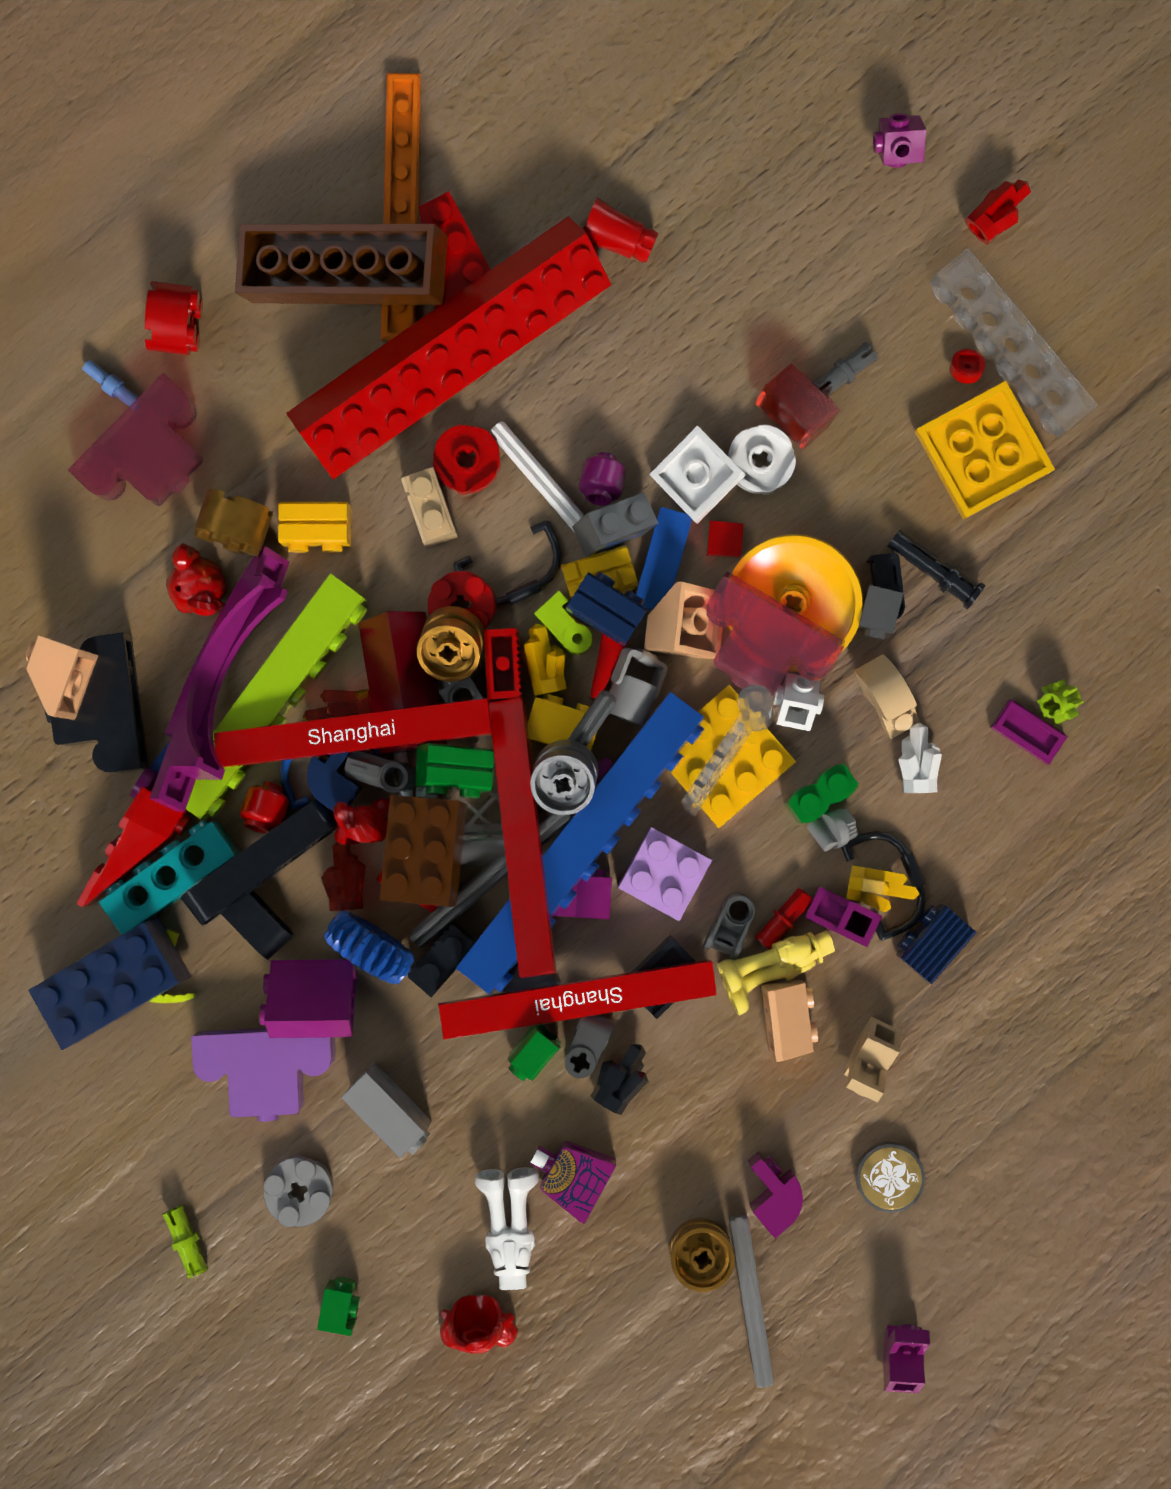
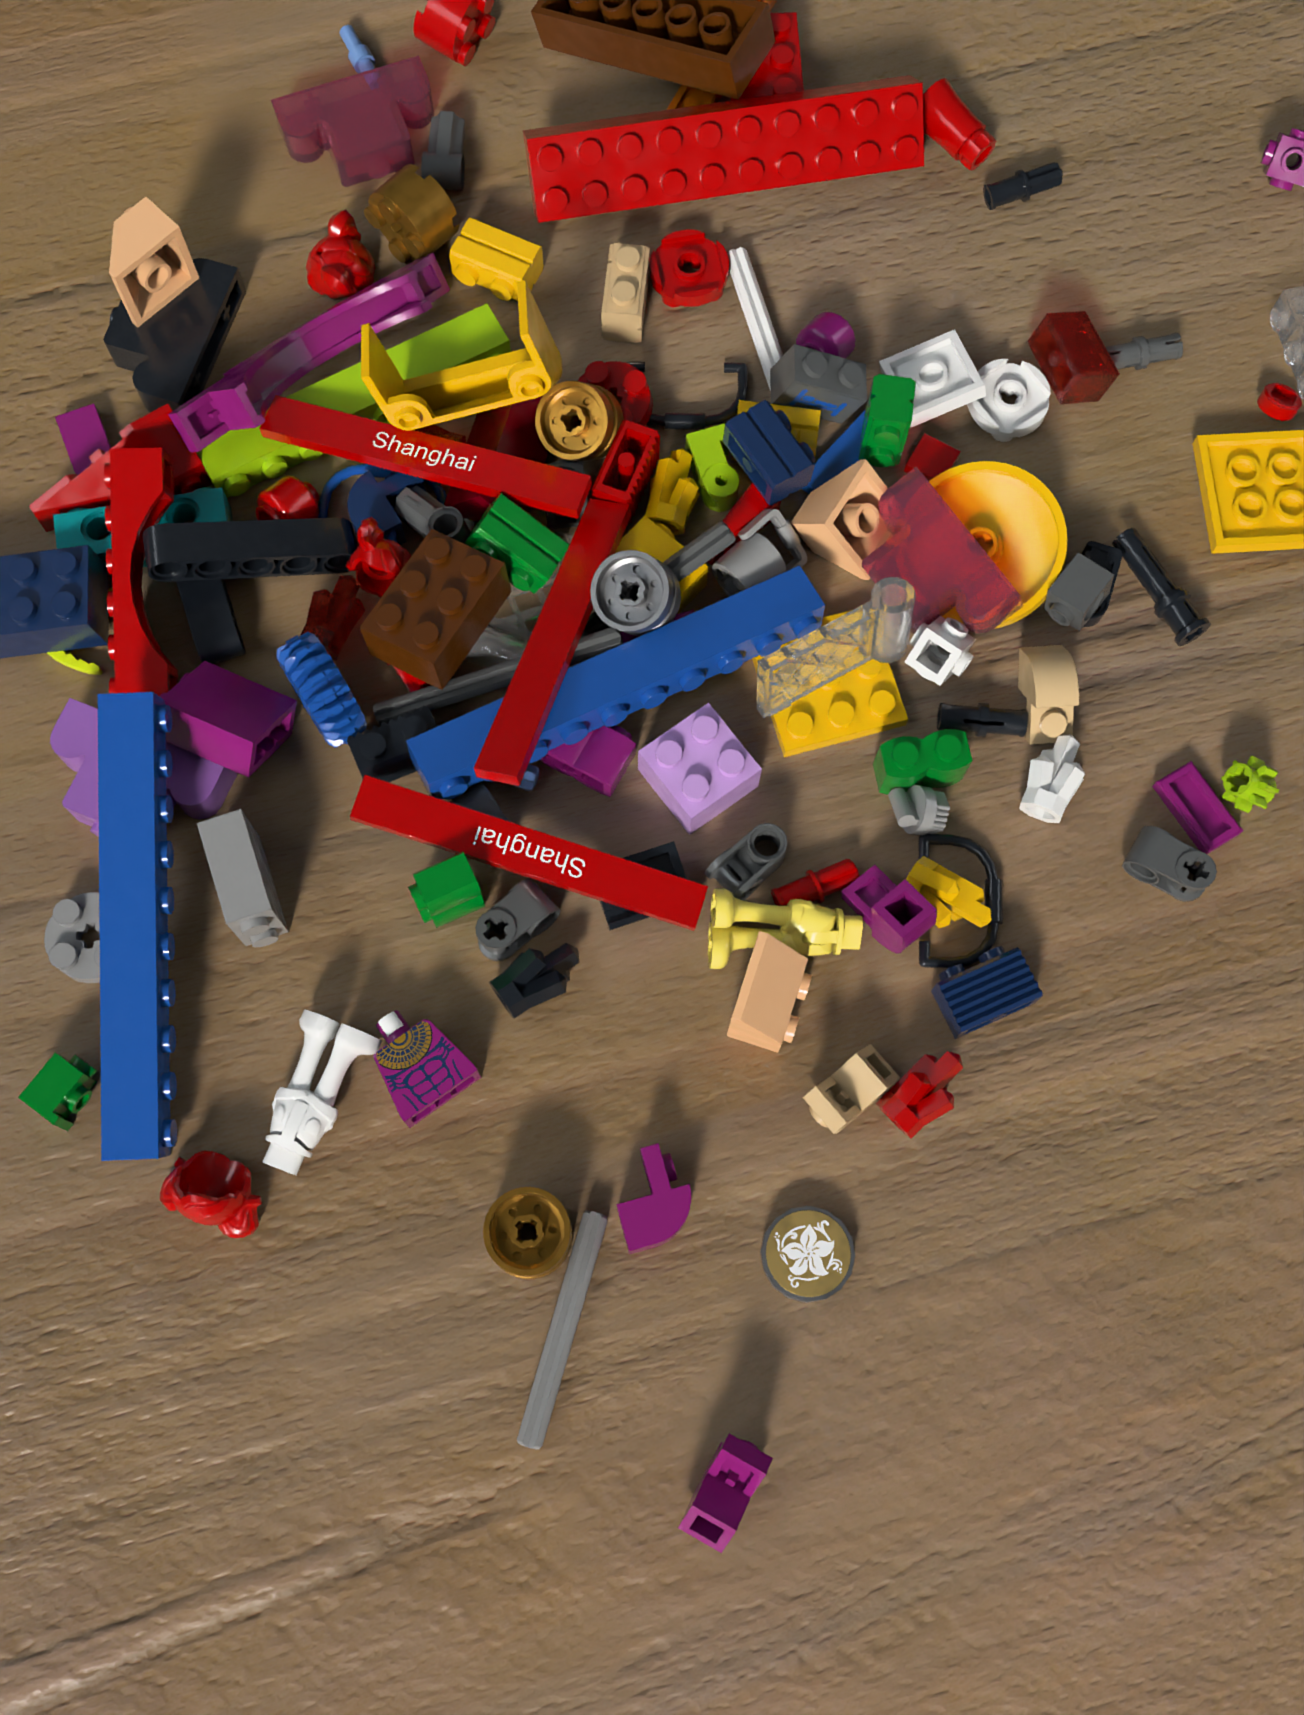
camera: 20 degrees right, 15 degrees down
(84, 824) = (82, 435): none -> magenta tile
(229, 453) = (445, 151): none -> dark grey piece
(231, 987) = (139, 495): none -> red arch
(332, 1180) = (135, 927): none -> blue brick
(357, 671) = (466, 387): none -> yellow windscreen
(683, 540) = (887, 420): none -> green brick
(694, 259) = (1022, 185): none -> black axle
(849, 737) = (982, 719): none -> black pin
(920, 1039) = (921, 1093): none -> red rock
(1020, 788) = (1166, 863): none -> dark grey piece

